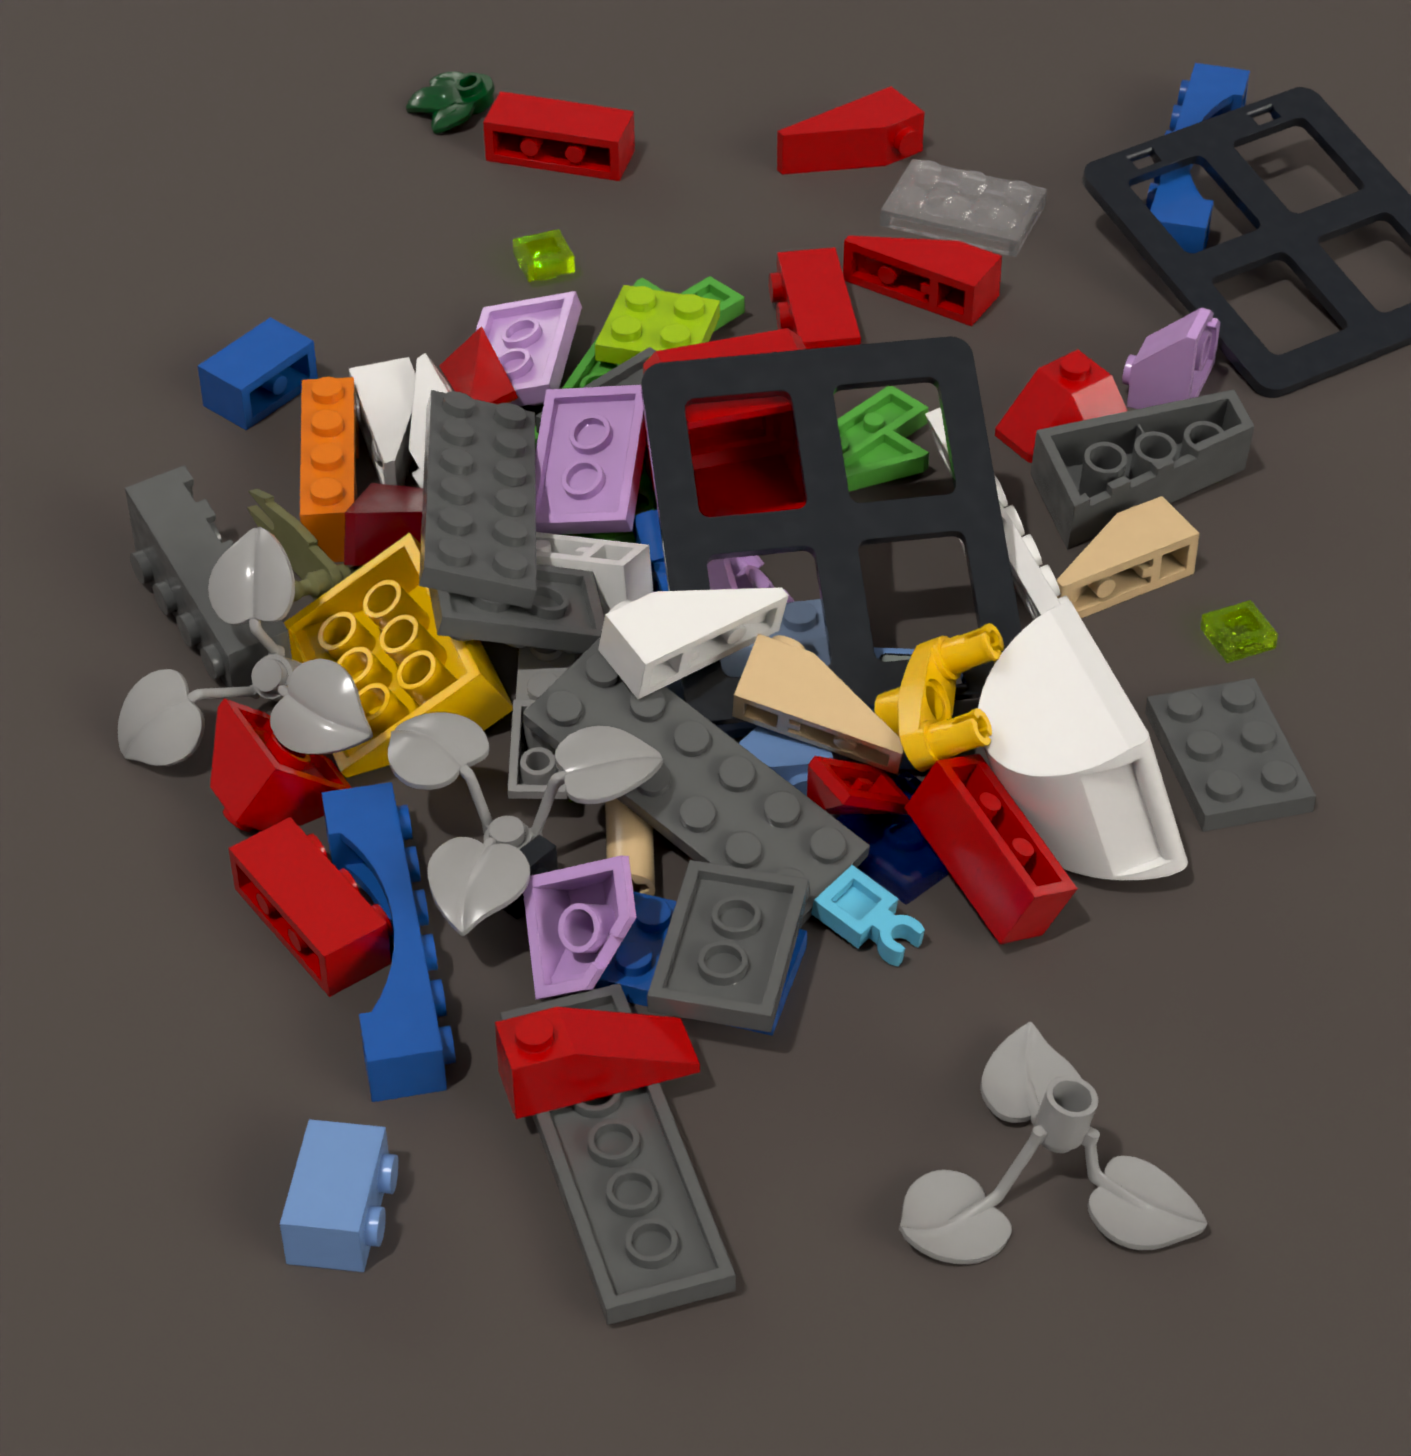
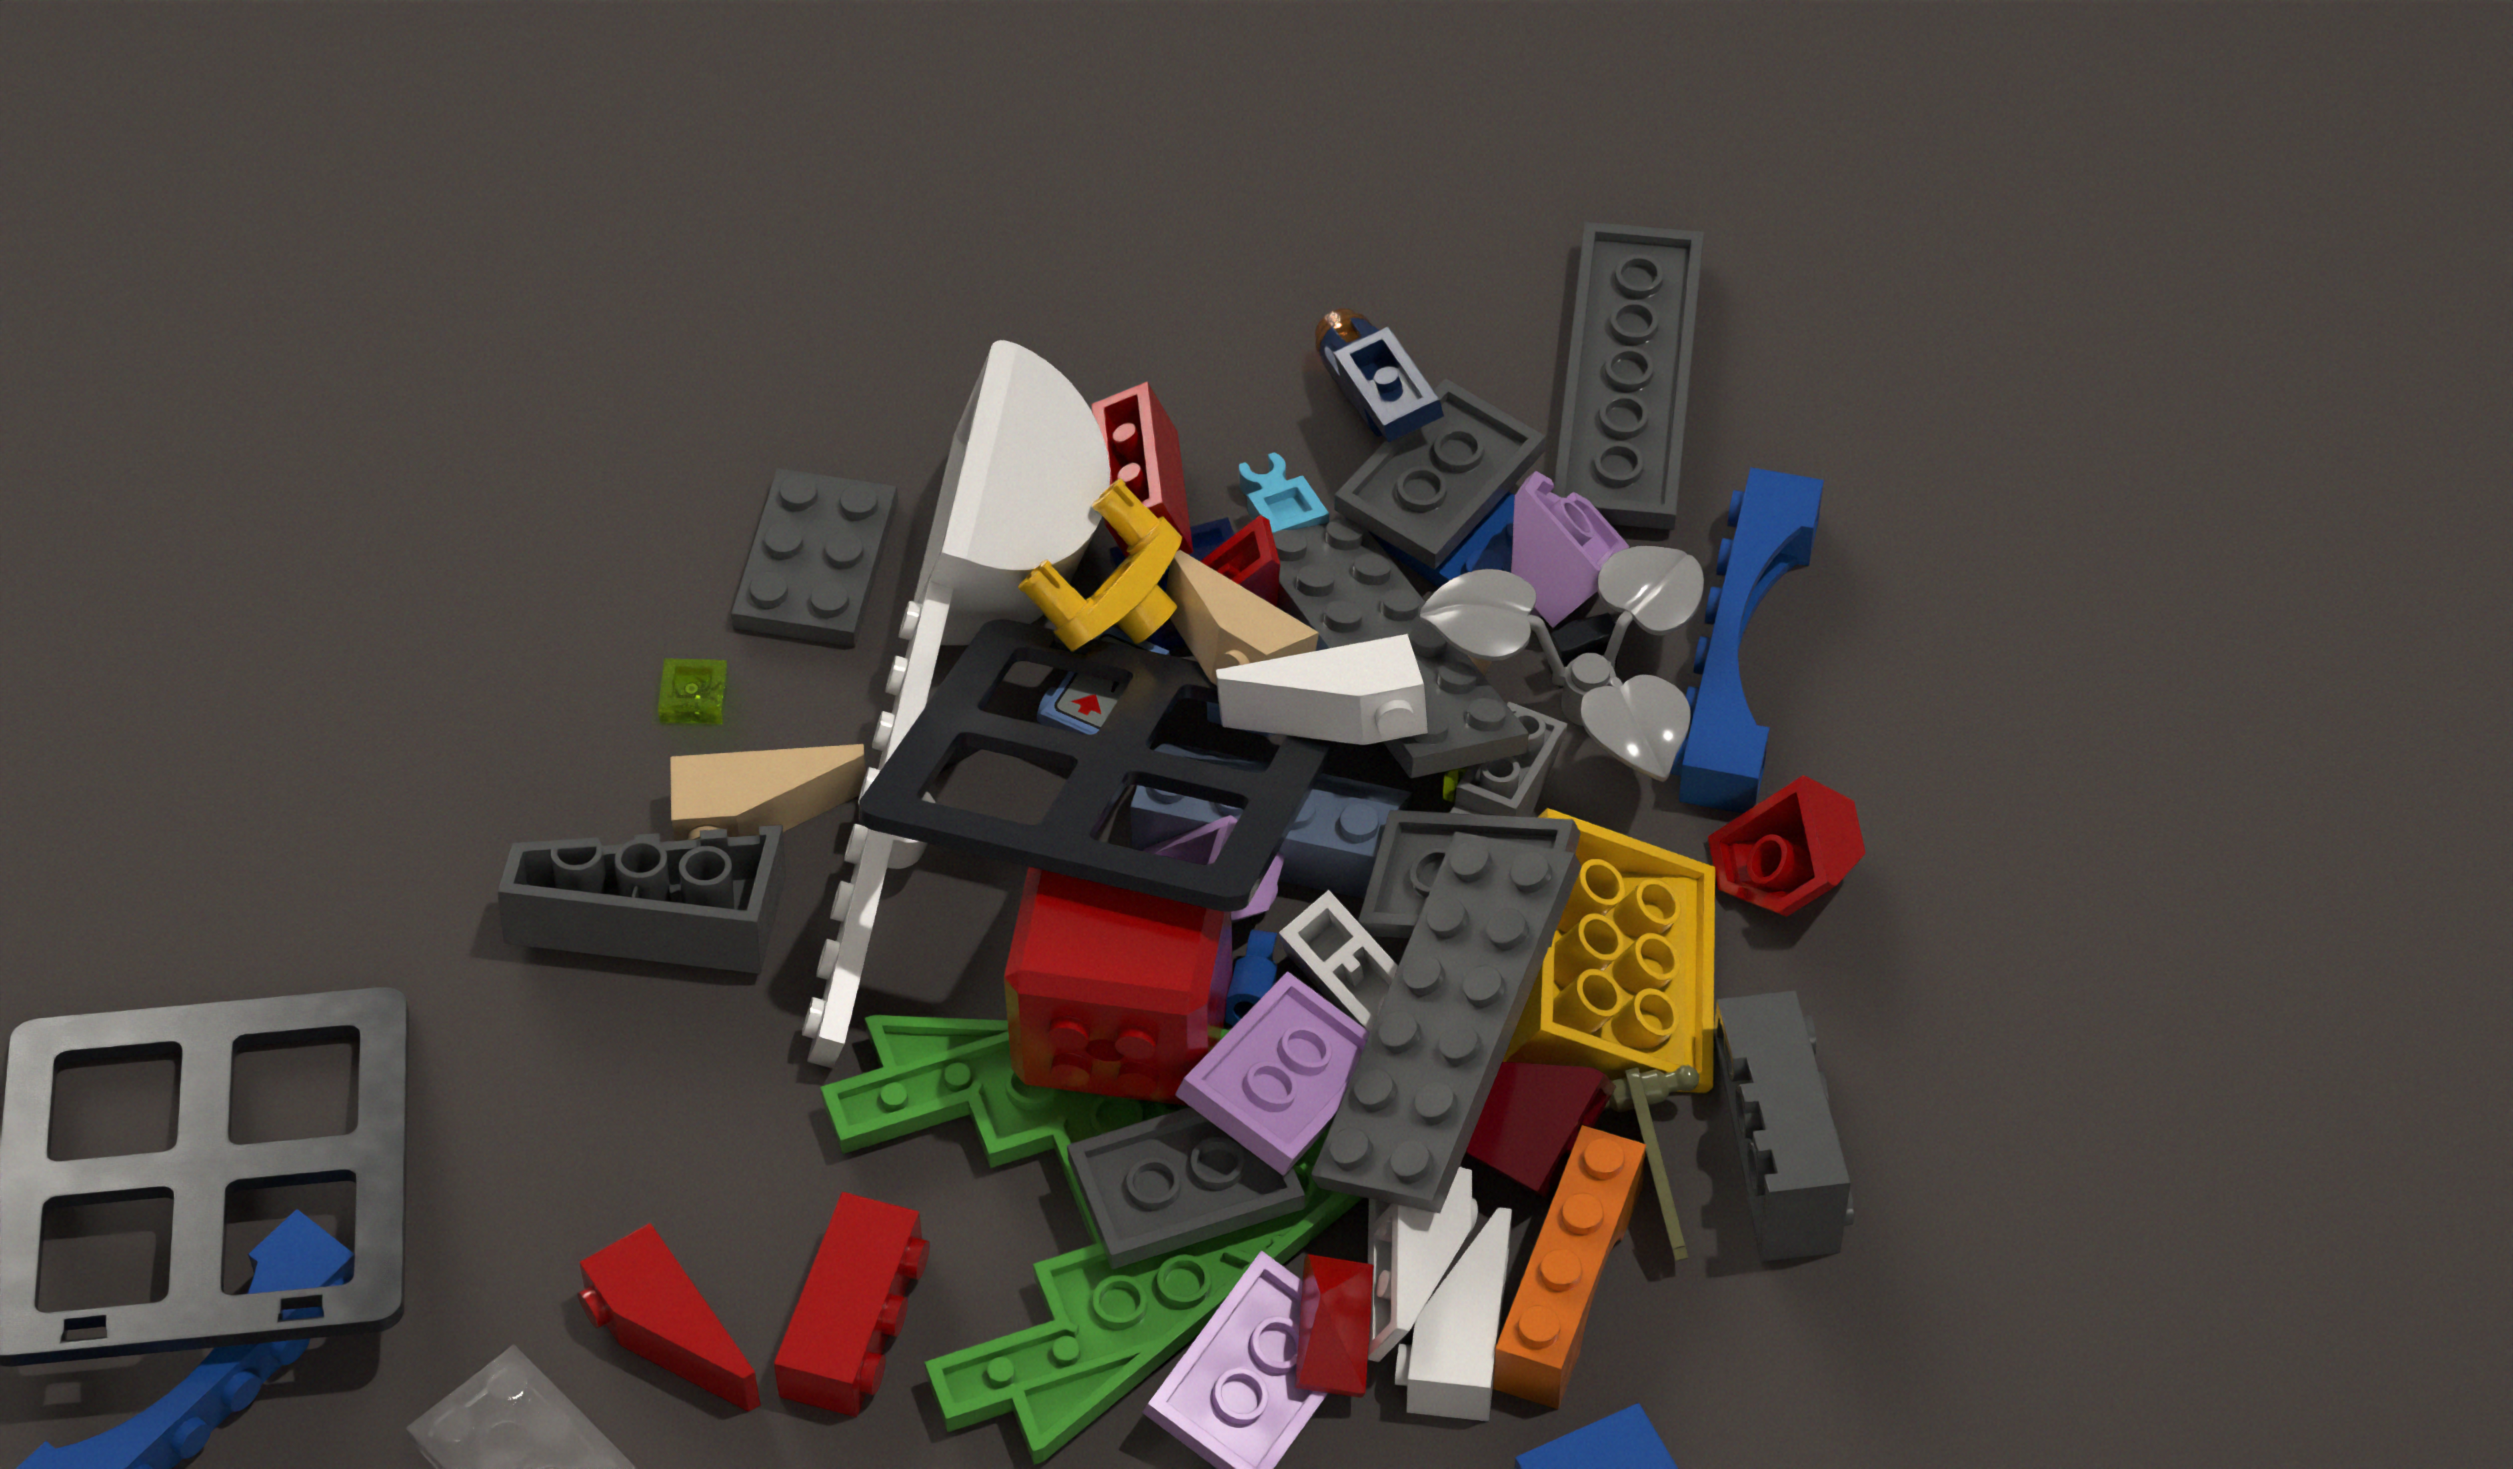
camera: 155 degrees left, 10 degrees up
(311, 905) = (1808, 695): red brick -> none
(315, 699) = (1751, 957): light grey plant -> none
(338, 1195) = (1888, 407): medium blue brick -> none
(587, 1054) = (1625, 408): red slope -> none
(654, 320) = (1071, 1323): lime plate -> none
(836, 1006) = (1375, 374): none -> dark blue plate
(1027, 1081) = (1208, 183): light grey plant -> none
(1057, 395) = (670, 1029): red slope -> none
(1173, 361) = (493, 1028): lavender slope -> none

